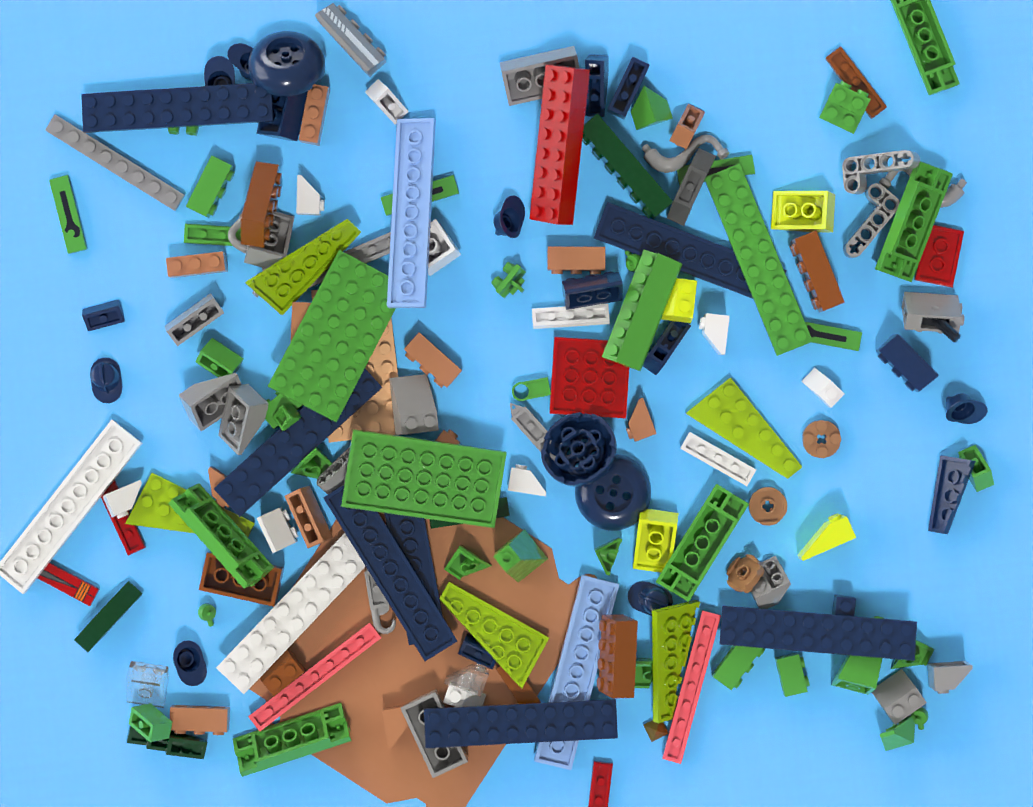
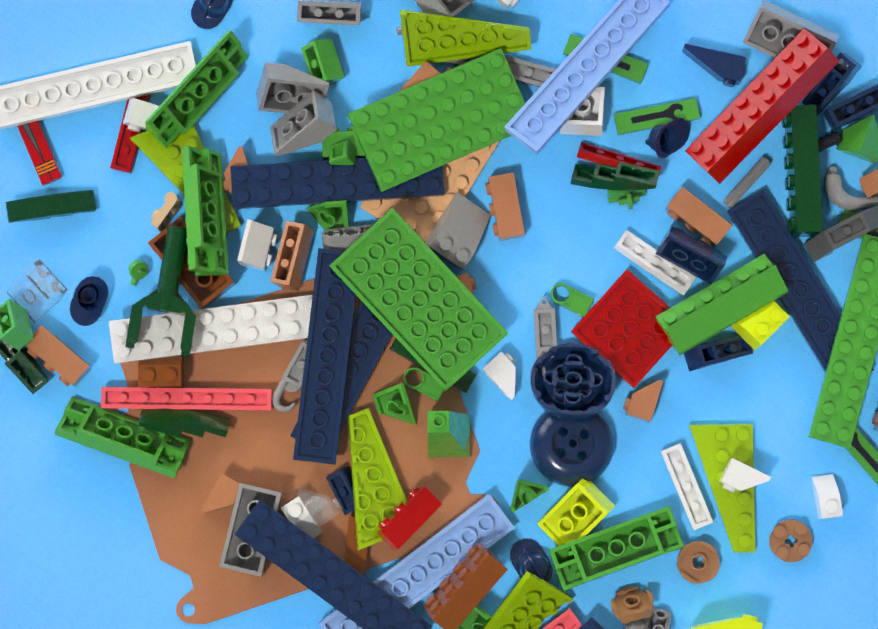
camera: 35 degrees right, 5 degrees down
(146, 452) = (197, 90): none -> bright green slope
(194, 564) = (162, 217): none -> tan plate
(242, 617) = (166, 296): none -> dark green piece
(321, 698) = (180, 420): none -> dark green slope
(478, 533) = (428, 386): none -> bright green piece
(488, 208) = (649, 117): none -> bright green tile
(488, 263) = (611, 158): none -> red tile
(499, 275) = (622, 177): none -> dark green slope
(505, 135) = (721, 65): none -> dark blue slope
(538, 637) = (408, 517): none -> red brick
(591, 205) = (747, 182): none -> light grey axle
(626, 129) = (829, 141): none -> black pin
(632, 261) = (745, 256): bright green piece -> none
(715, 331) = (771, 372): white slope -> none
(751, 423) = (741, 476): none -> white slope

